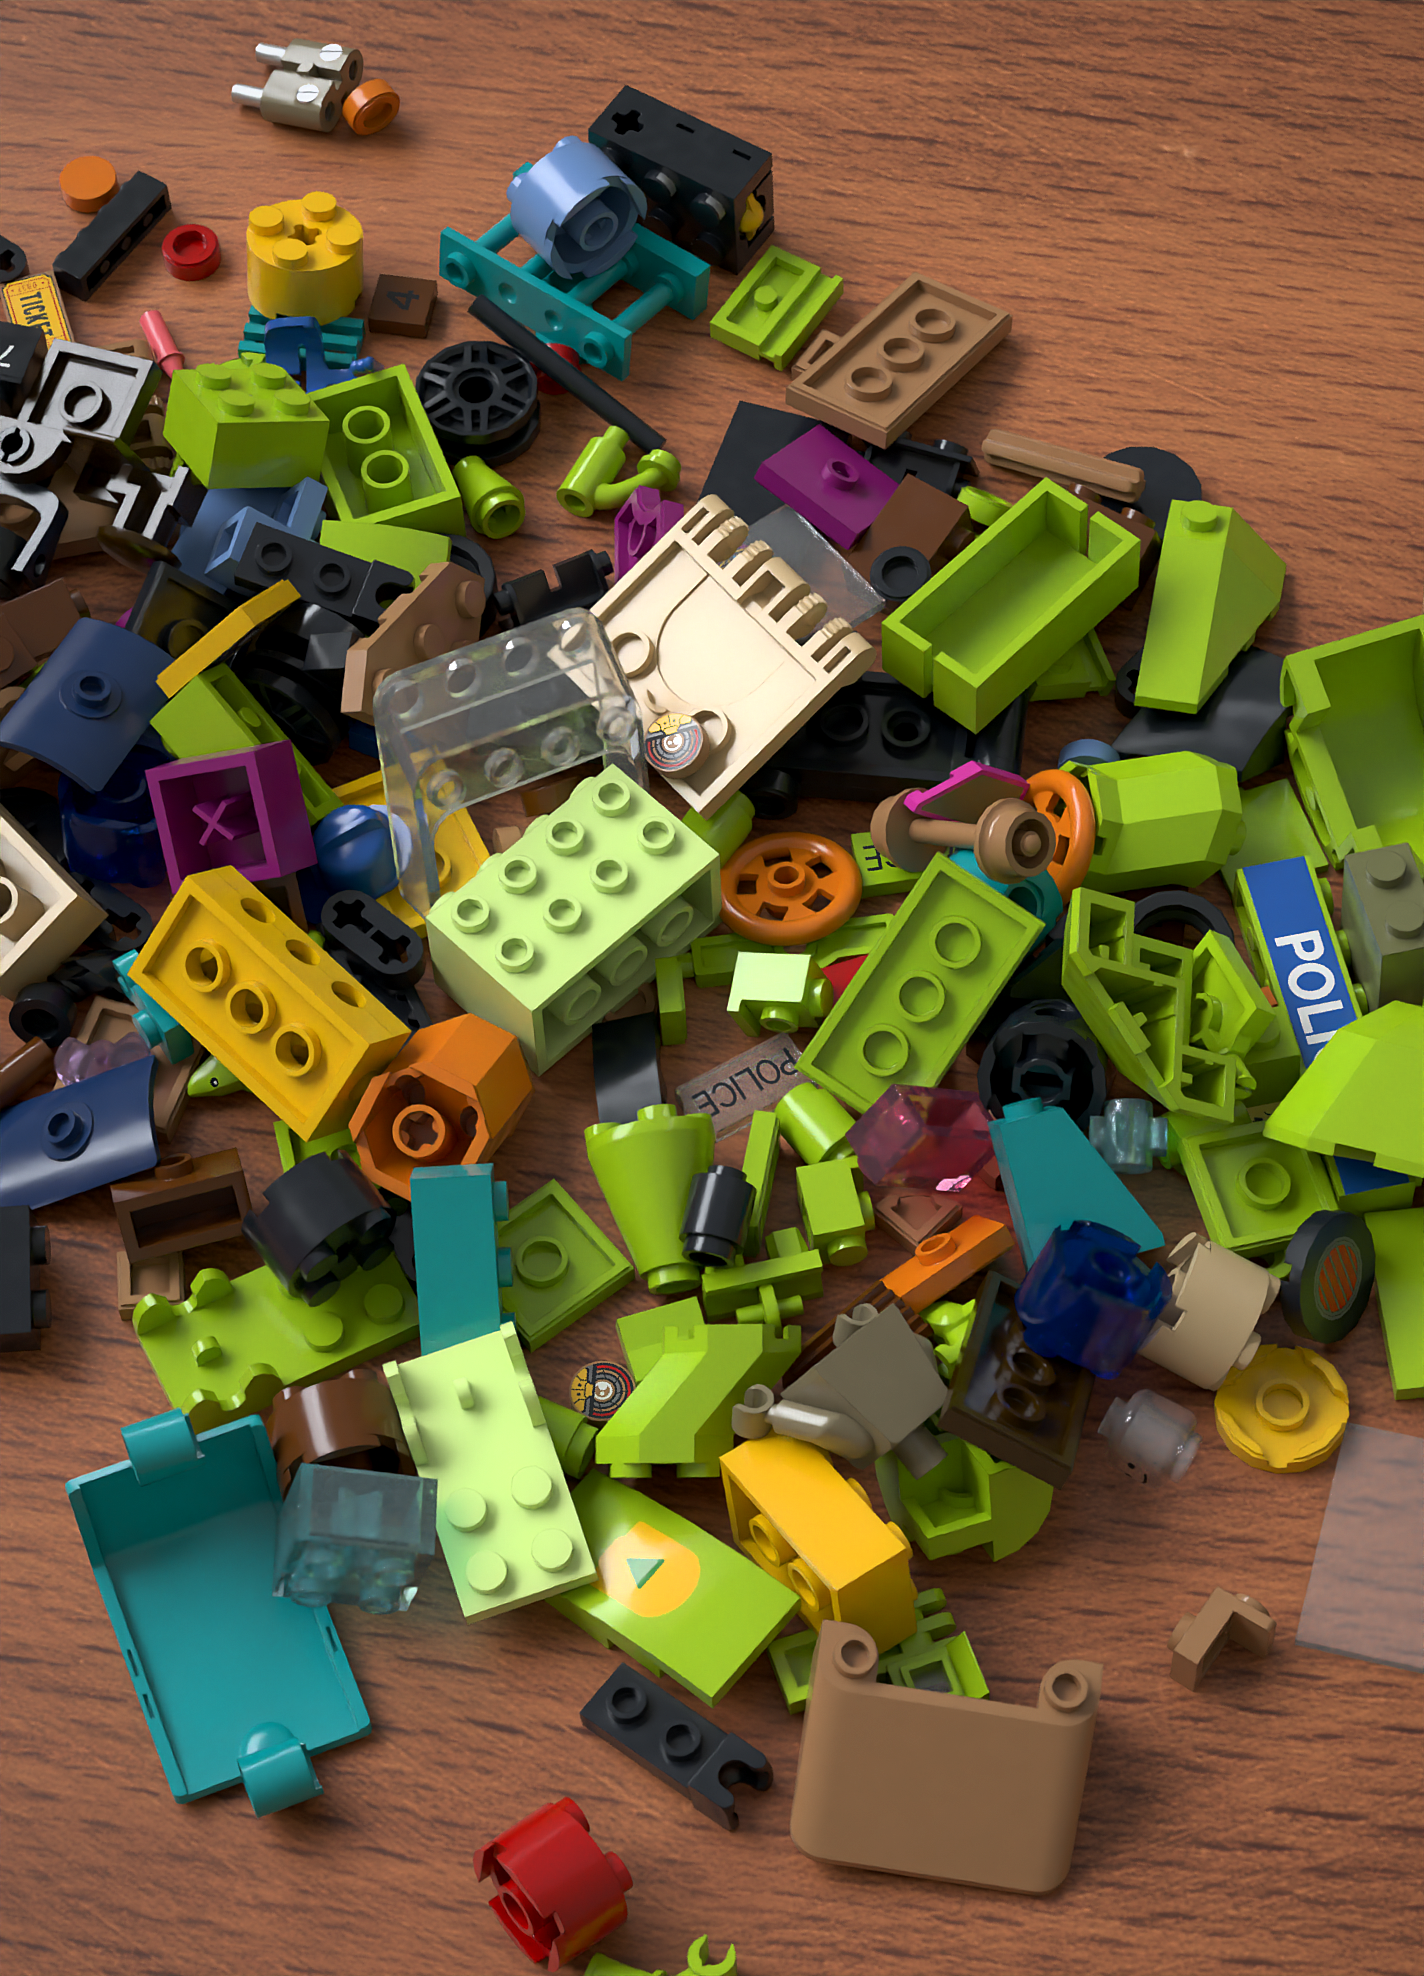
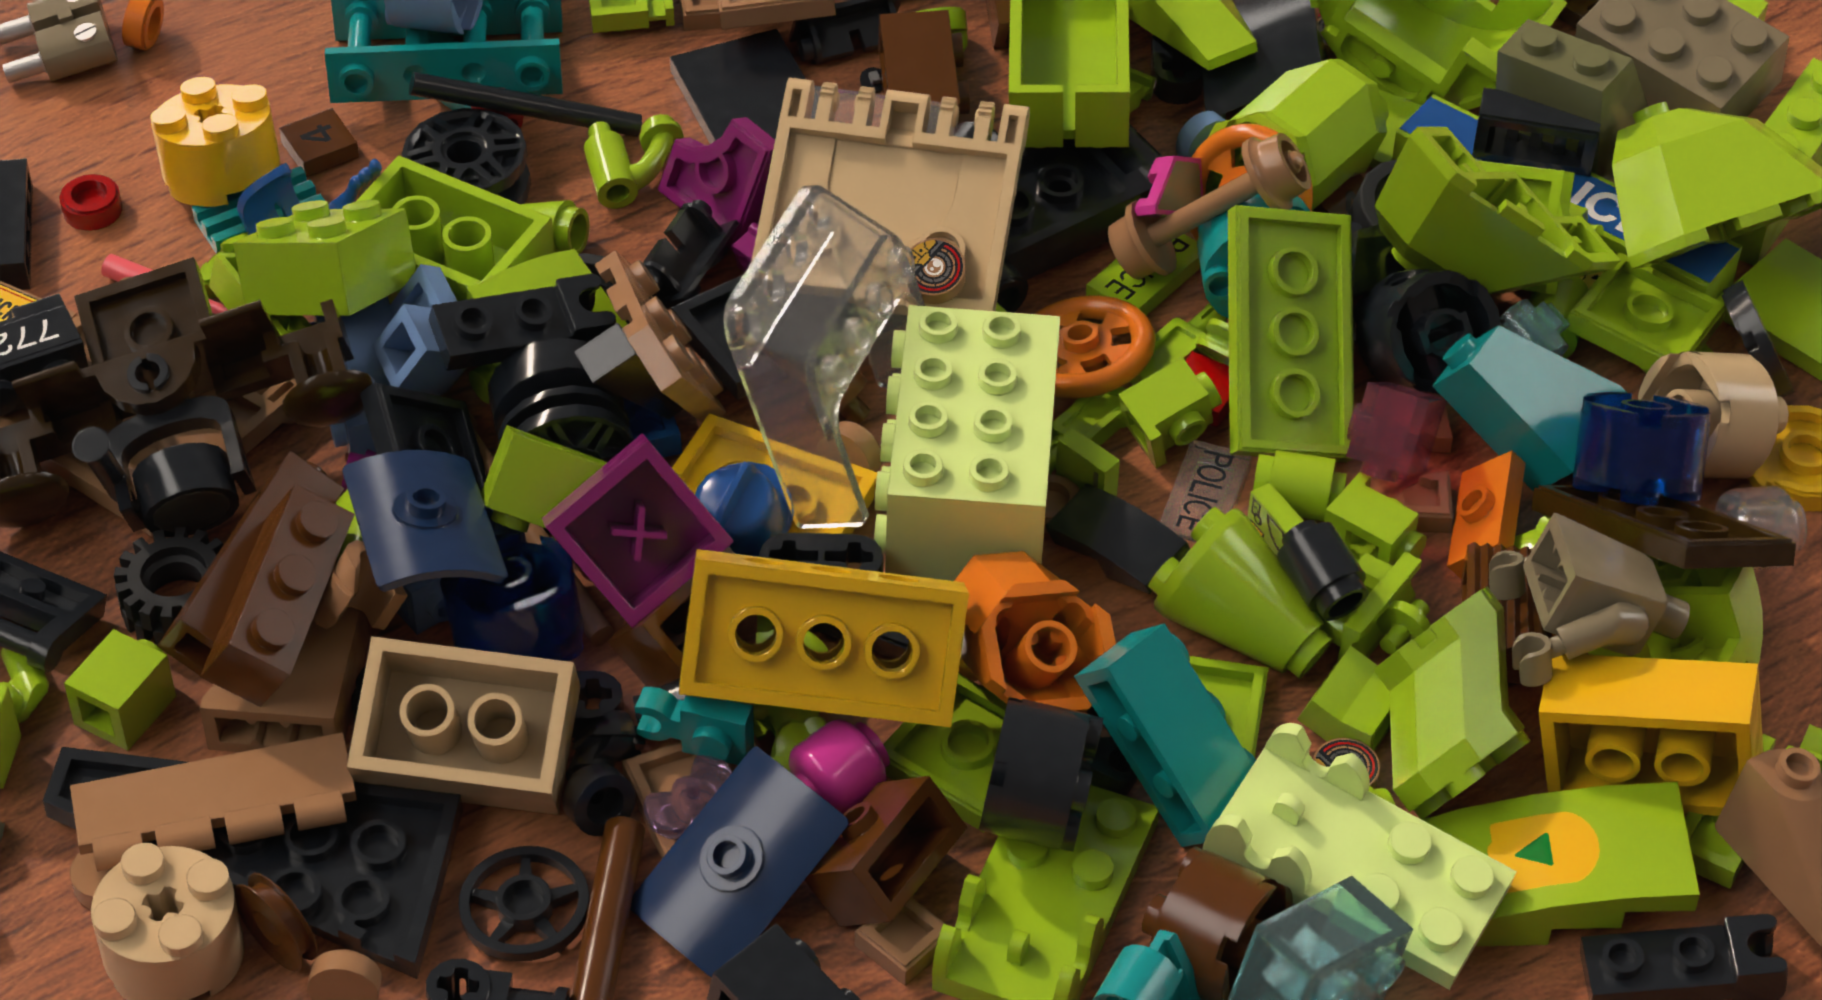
camera: 45 degrees left, 10 degrees down
(223, 1116) = (840, 762): none -> dark pink head
(228, 636) = (497, 401): yellow tile -> none
(828, 485) = (823, 60): magenta plate -> none
(899, 574) = (952, 78): black tile -> none
(1320, 947) = (1506, 114): none -> black slope

